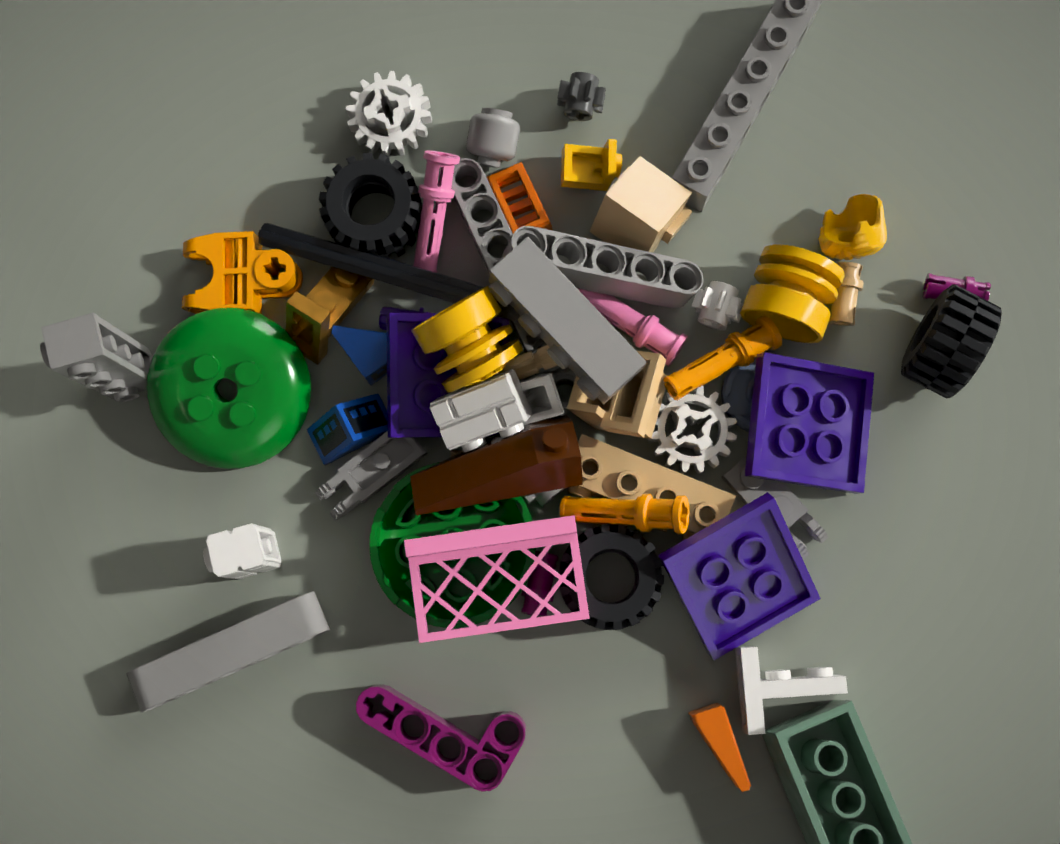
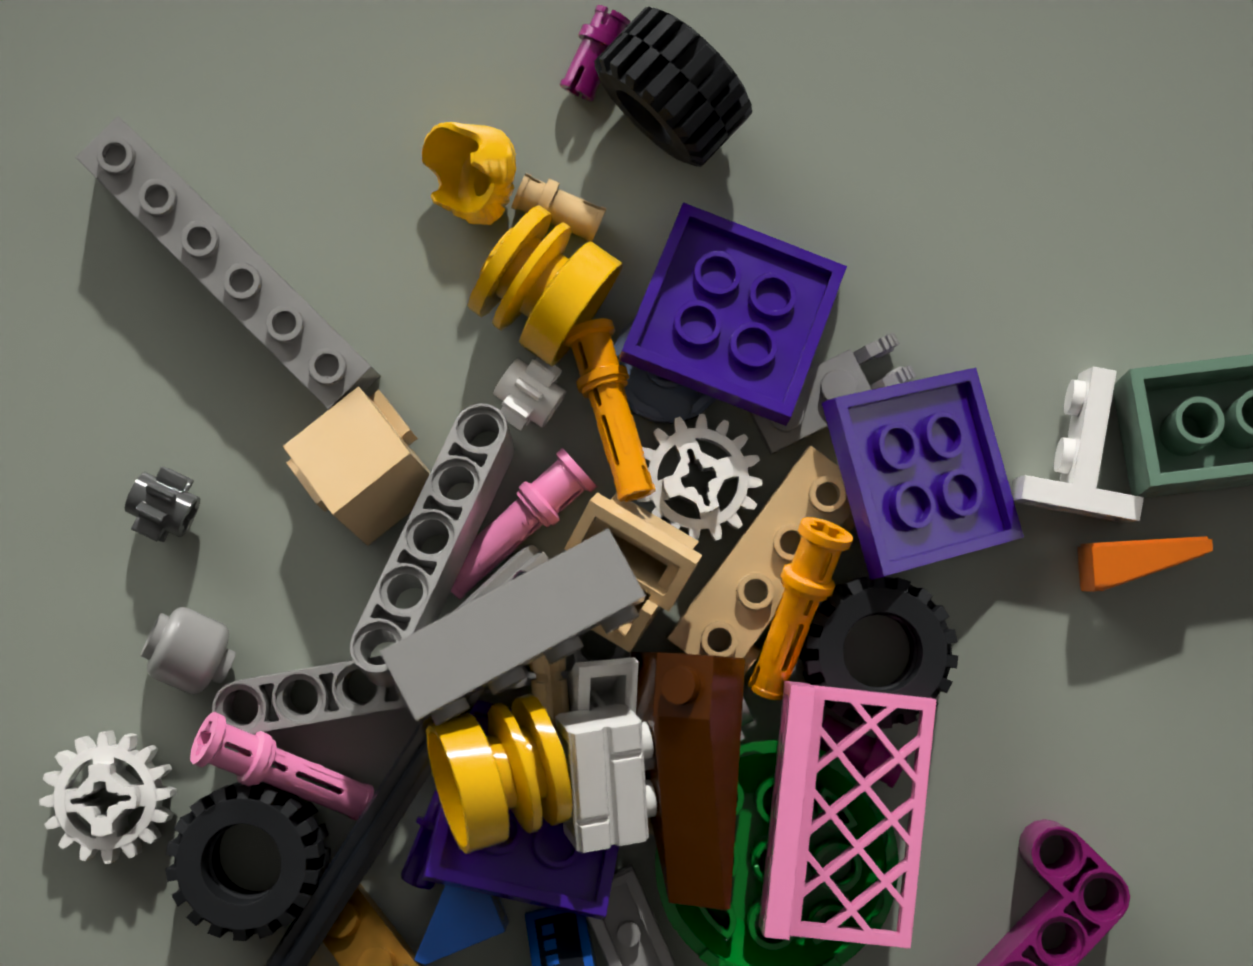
camera: 85 degrees left, 5 degrees up
(507, 177) = (334, 623): orange slope -> none
(590, 166) = (271, 519): yellow bracket -> none

